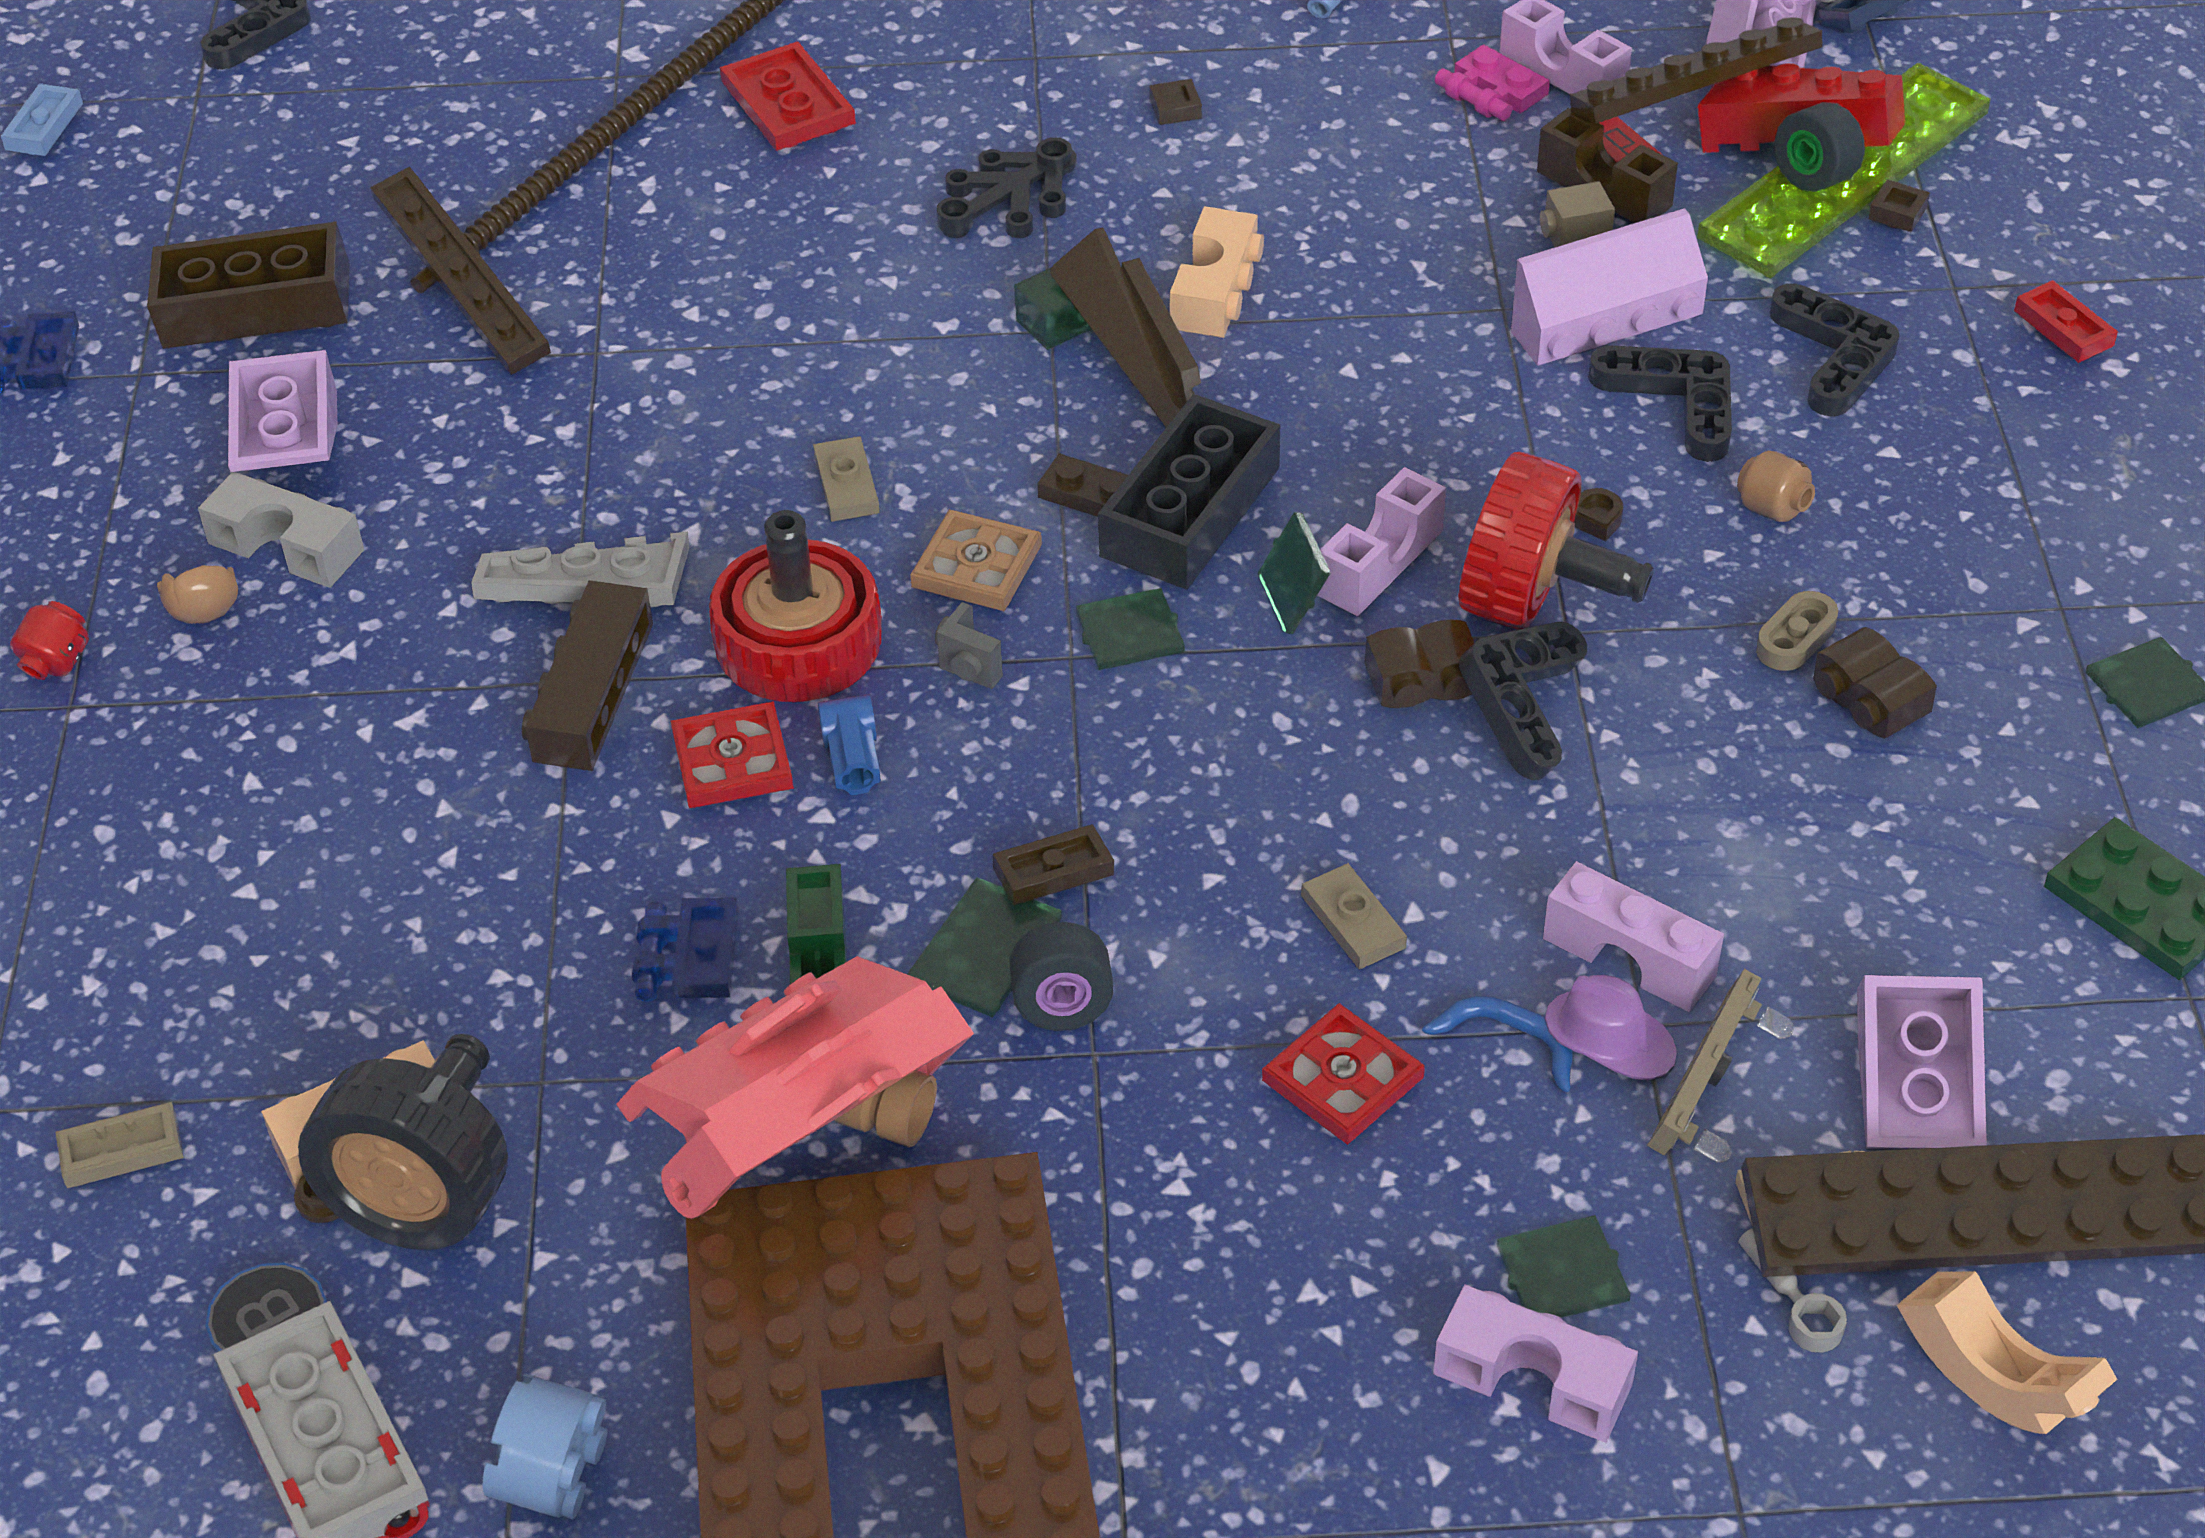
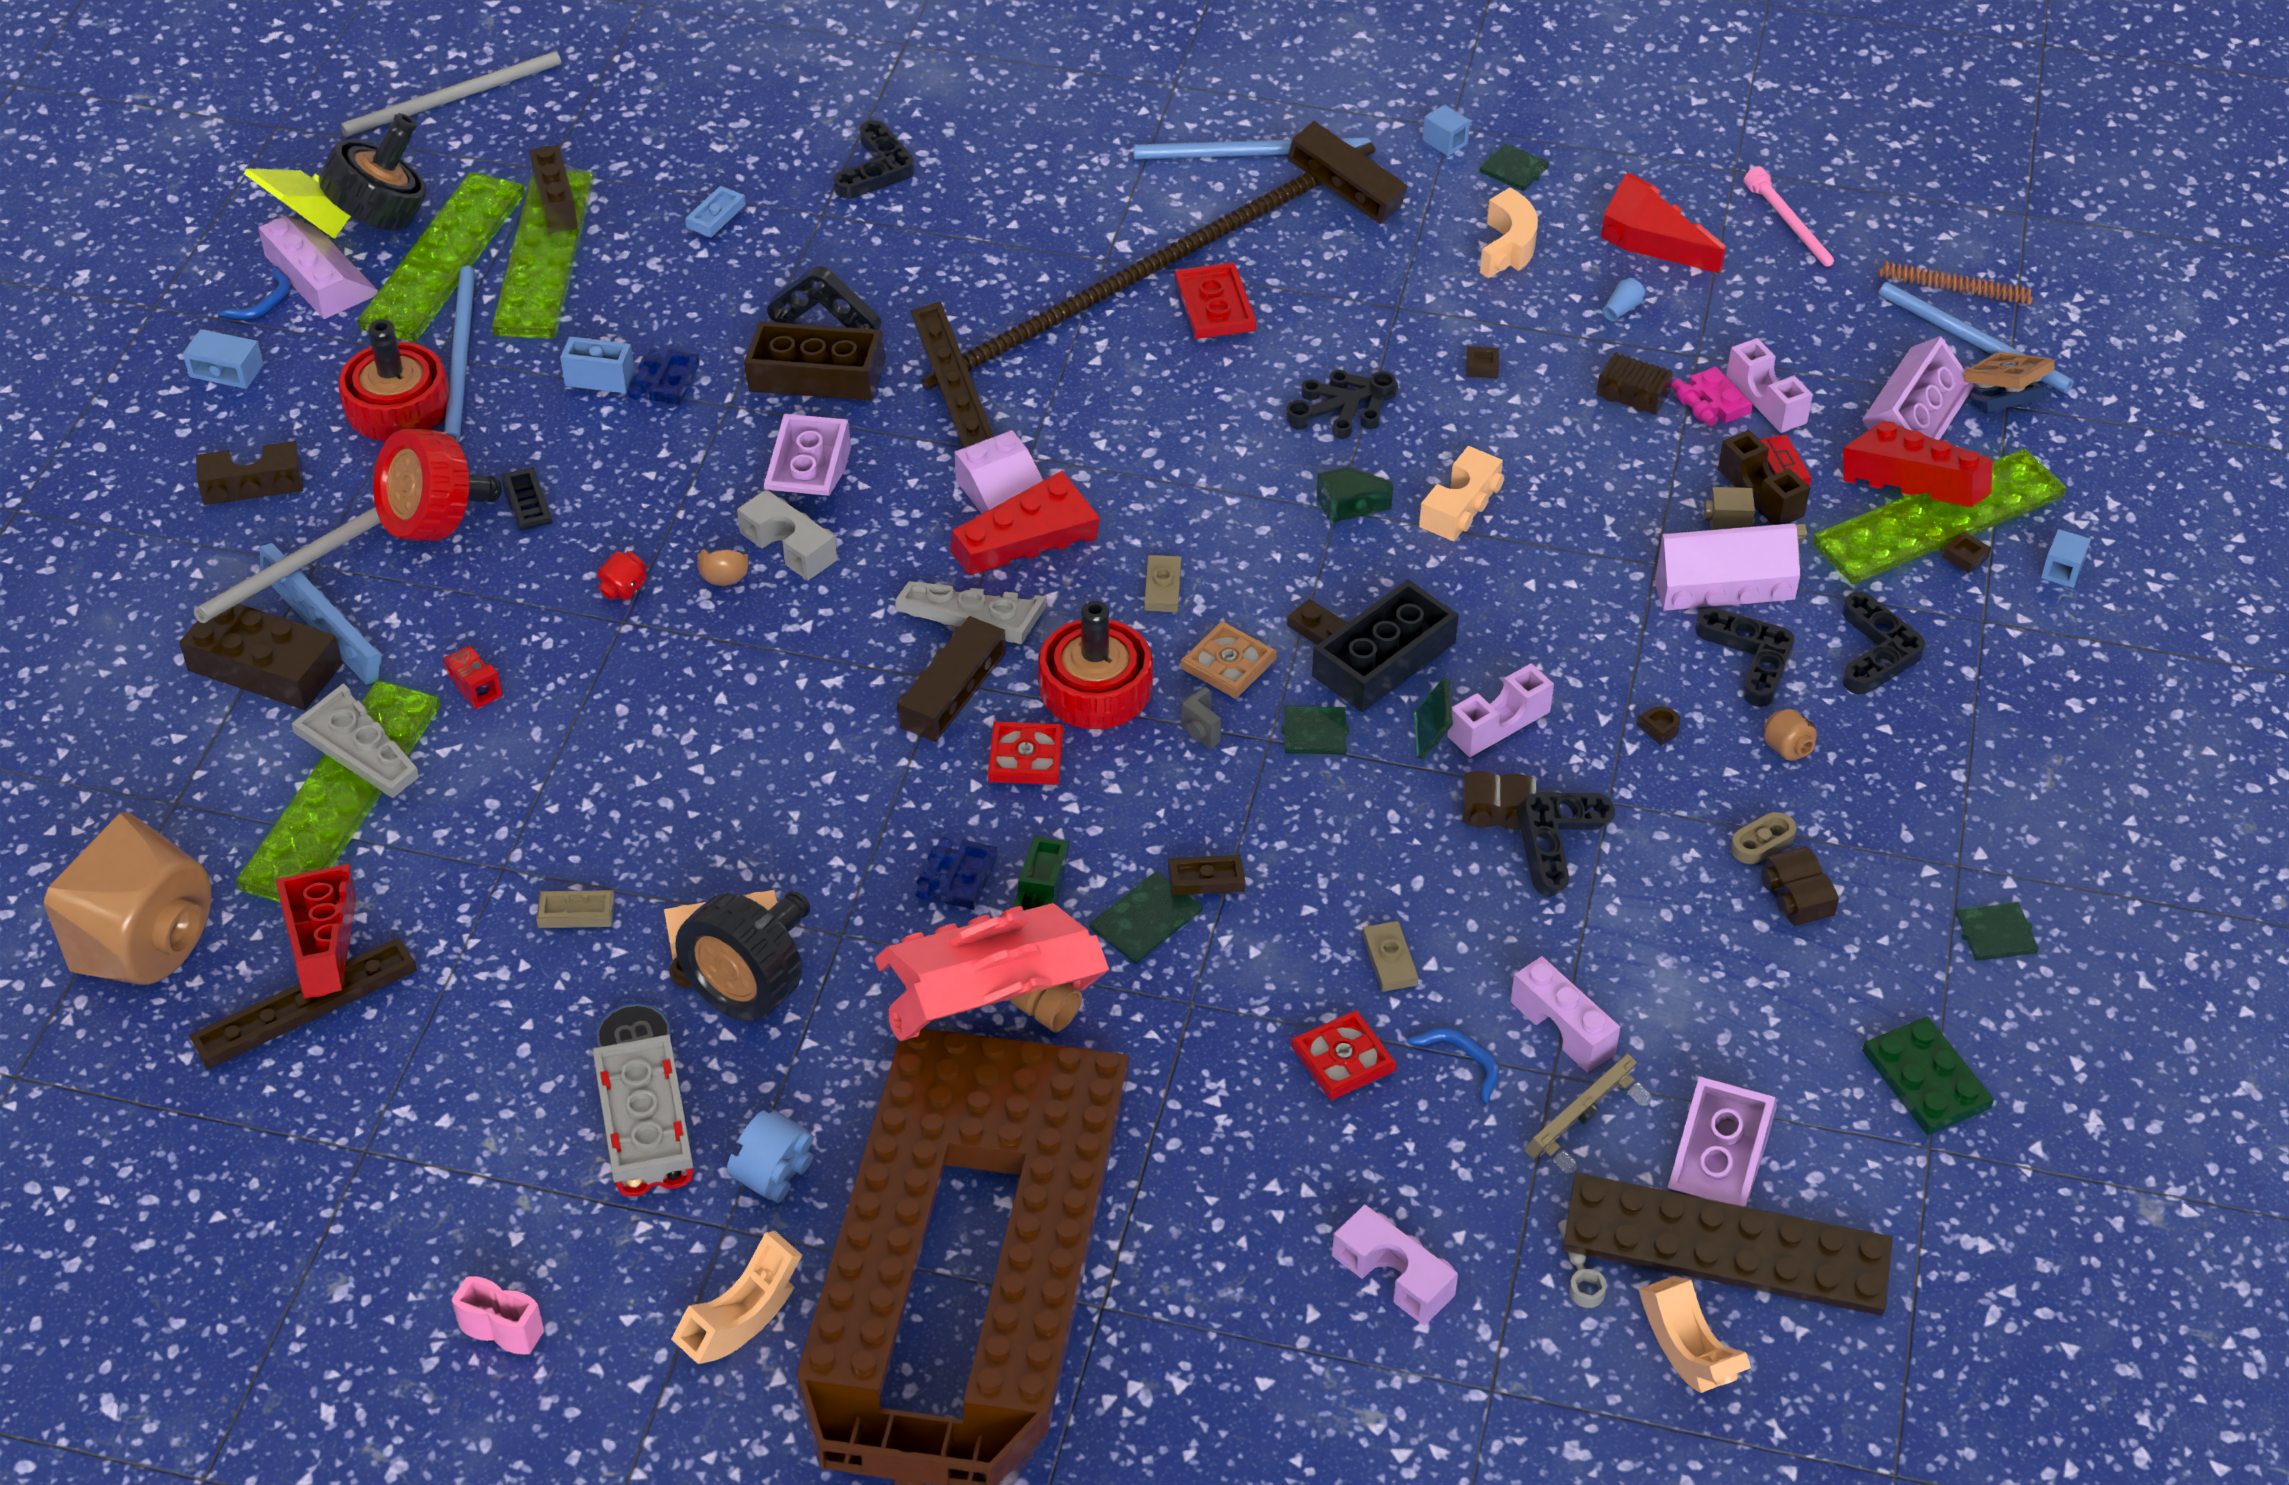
camera: 15 degrees right, 0 degrees up
(237, 191) = (825, 294): none -> black beam
(577, 393) = (995, 470): none -> lavender slope
(629, 438) = (1031, 522): none -> red wedge
(850, 736) = (1104, 757): blue piece -> none
(1061, 976) = (1183, 948): black wheel -> none
(1130, 322) = (1385, 516): dark brown wedge -> none
(1387, 86) = (1634, 383): none -> dark brown brick
(1529, 542) = (1593, 734): red wheel -> none
(1564, 1268) = (1439, 1213): clear green piece -> none
(1608, 1024) = (1527, 1069): medium lavender piece -> none
(1694, 71) = (1850, 422): dark brown plate -> none
(1819, 146) = (1917, 497): black wheel -> none
(2028, 186) = (2065, 558): none -> medium blue brick
(2065, 321) = (2049, 663): red plate -> none

